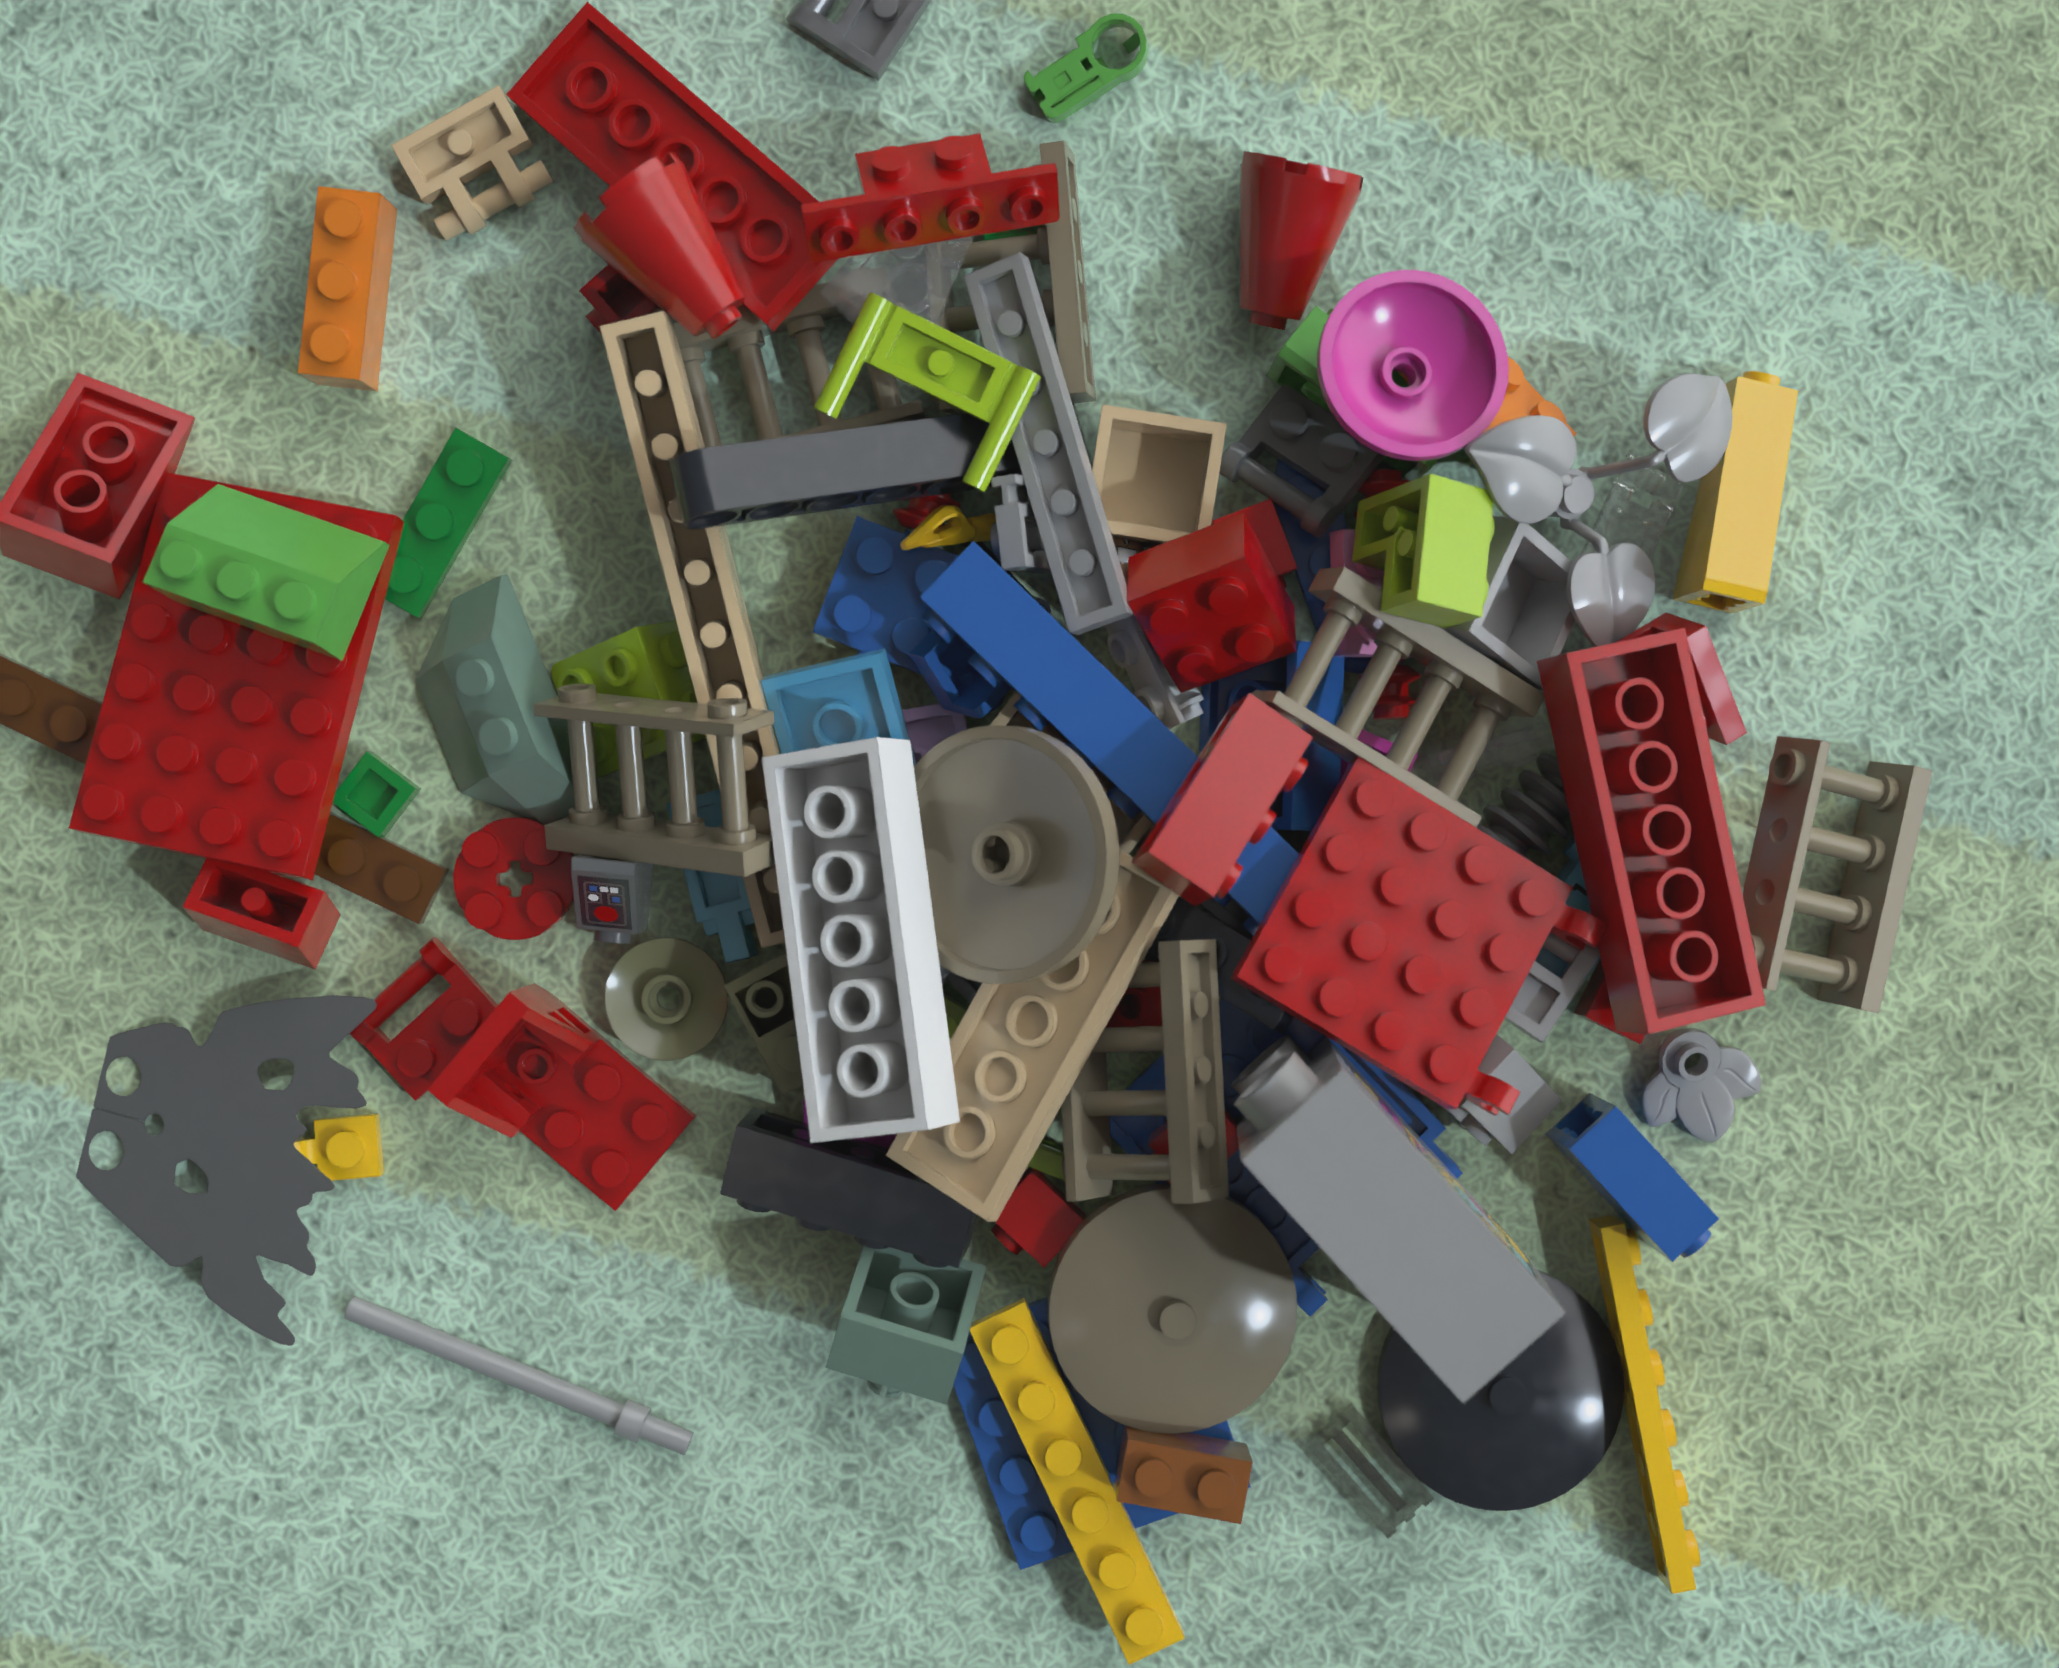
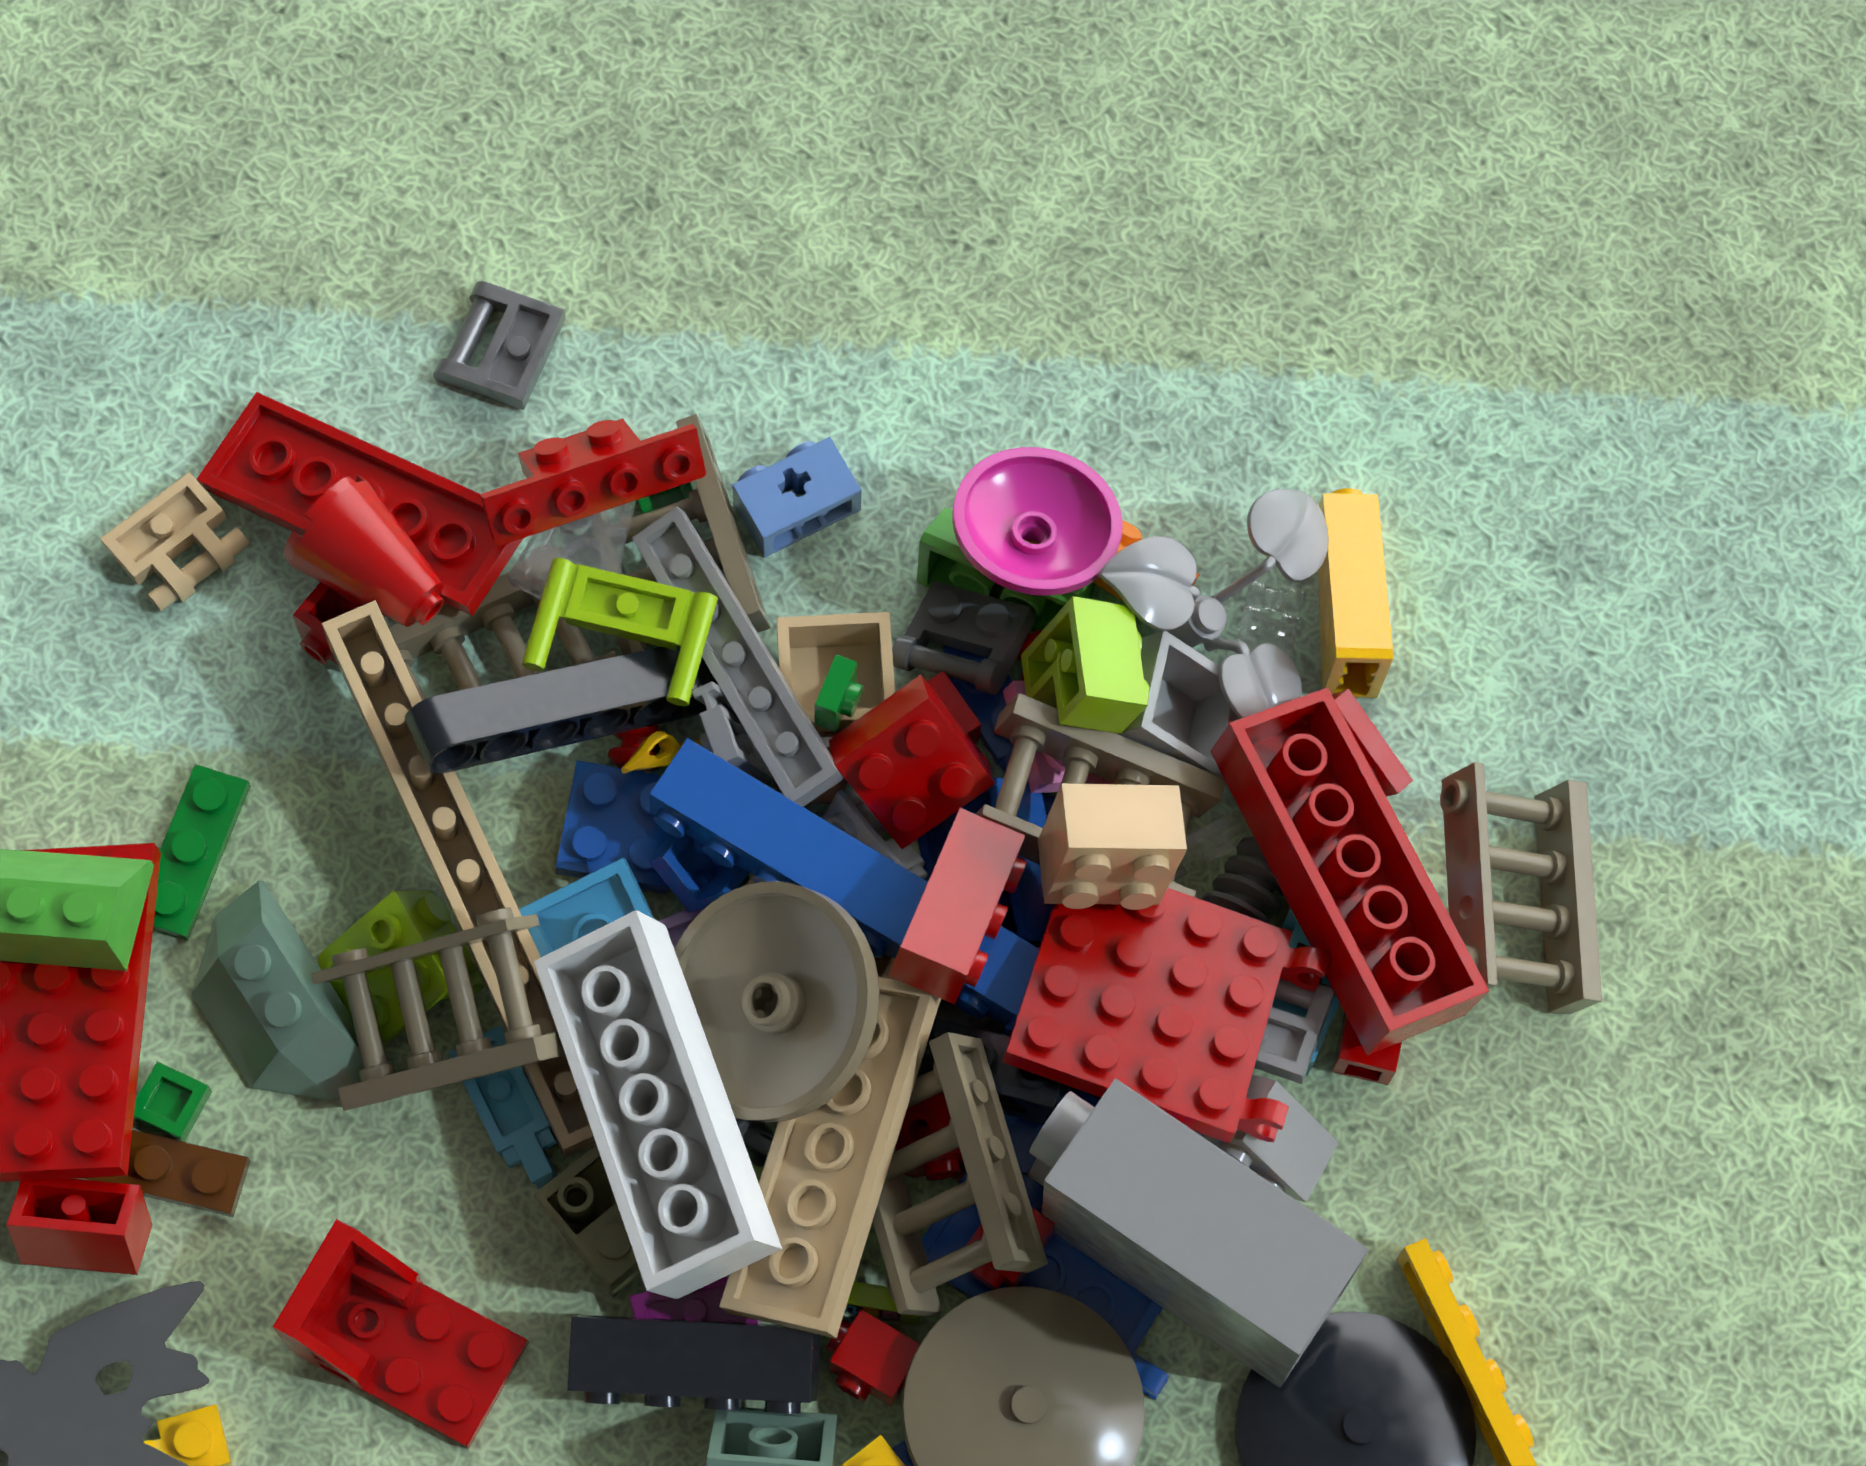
camera: 20 degrees left, 20 degrees down
(347, 288) = (79, 664): orange brick -> none
(435, 1035) = (247, 1337): red plate -> none
(489, 905) = (298, 1182): red plate -> none
(611, 896) = (412, 1137): slope -> none
(634, 1003) = (472, 1202): olive dish -> none
(1081, 78) = (700, 373): bright green piece -> none
(1150, 516) = (838, 694): none -> green plate
(1188, 261) = (782, 518): none -> medium blue brick
(1288, 232) = (907, 453): red cone -> none
(1403, 779) = (1111, 845): none -> tan piece
(1633, 1178) = (1421, 1192): blue brick -> none
(1702, 1094) = (1466, 1117): light grey plate -> none

